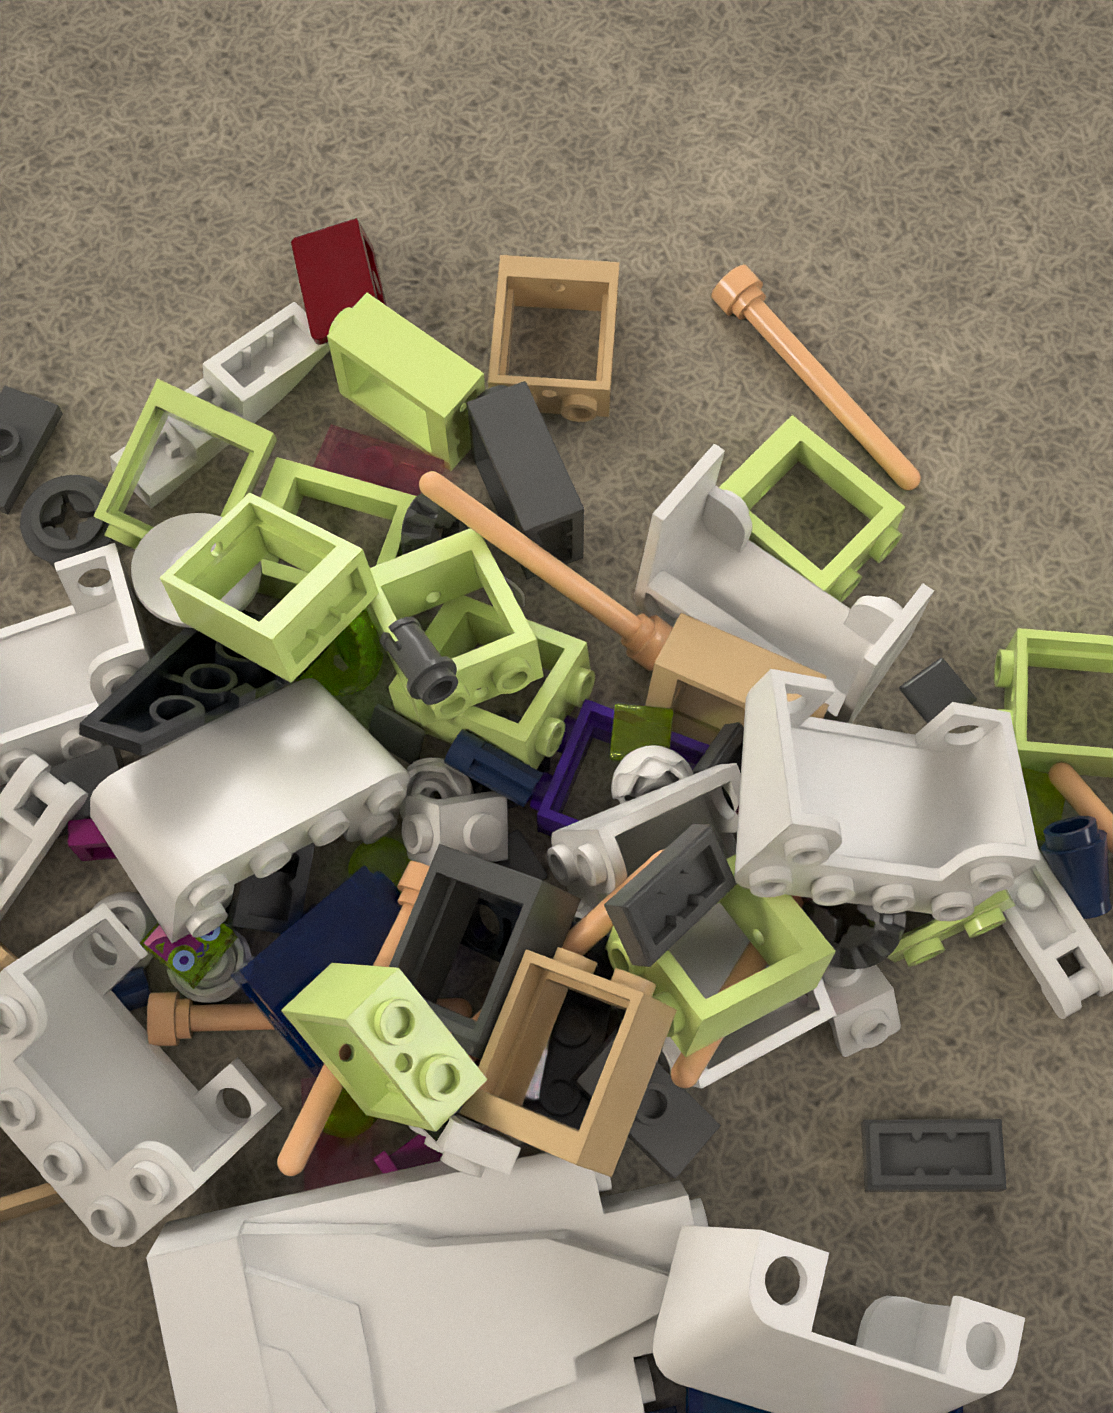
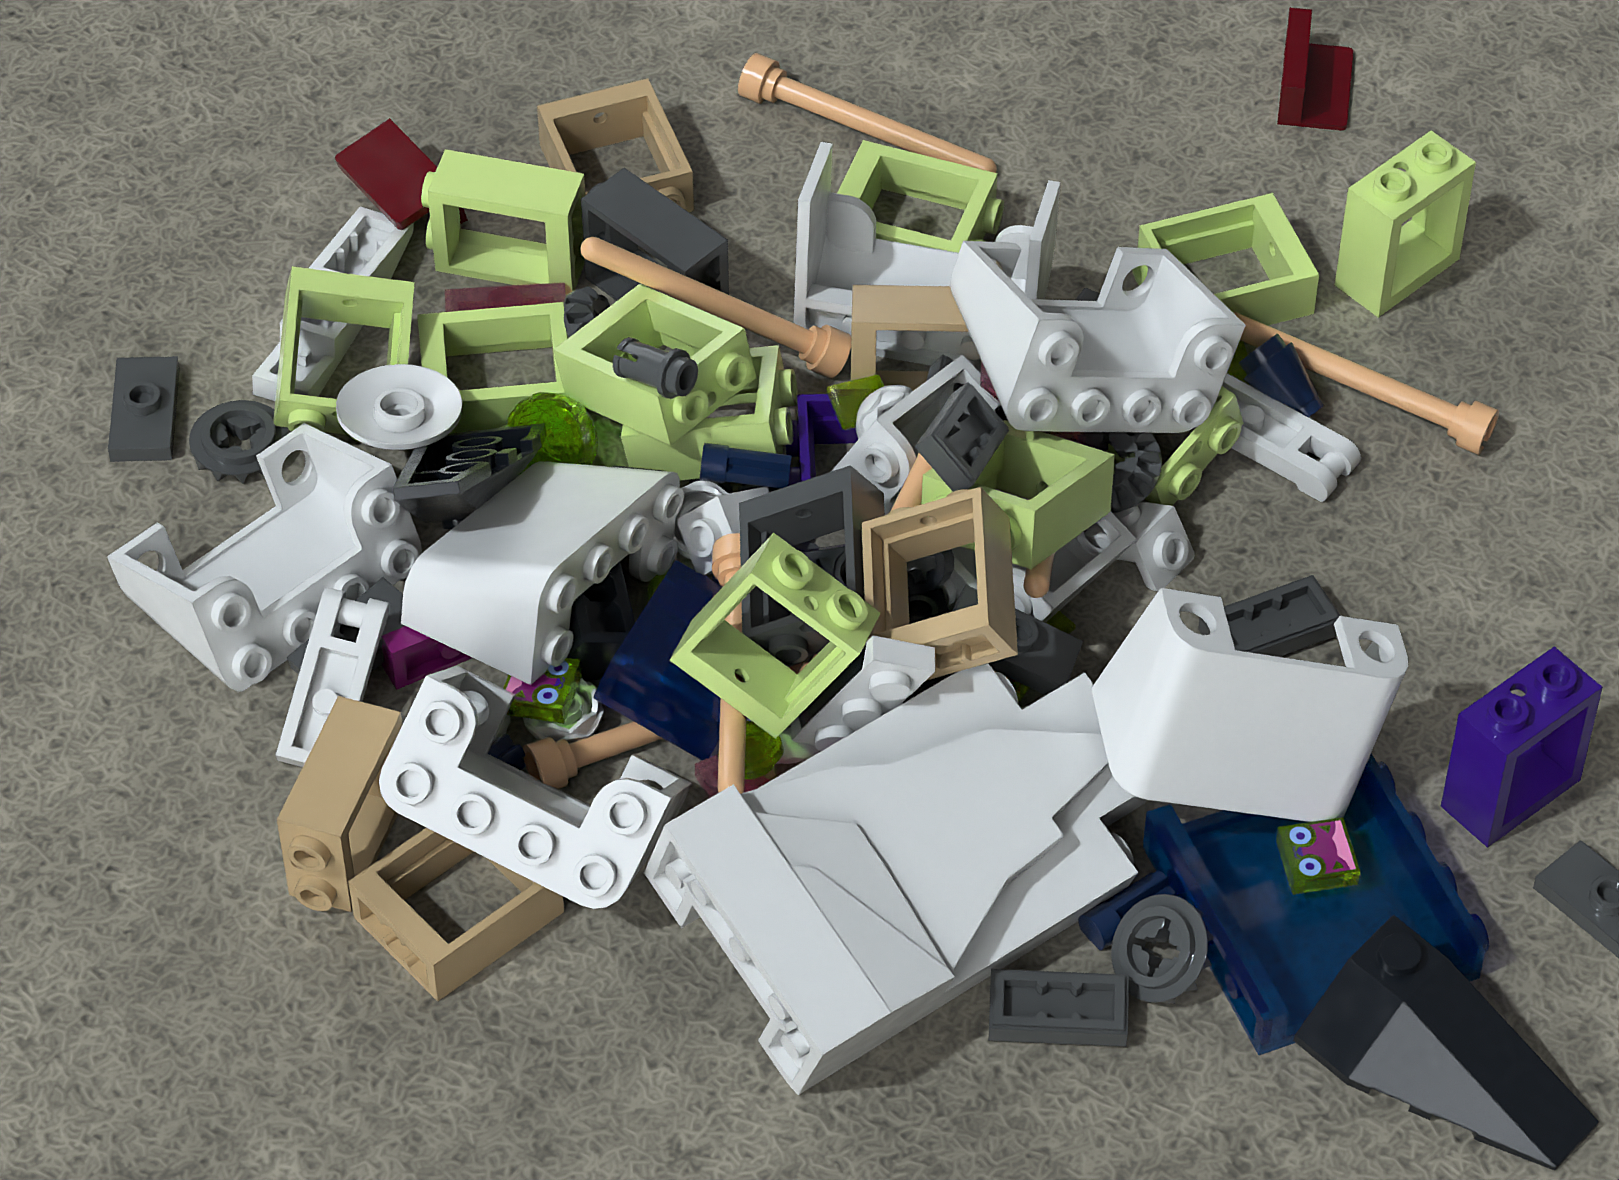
camera: 25 degrees left, 20 degrees down
(305, 619) = (529, 338): yellowish green window -> none

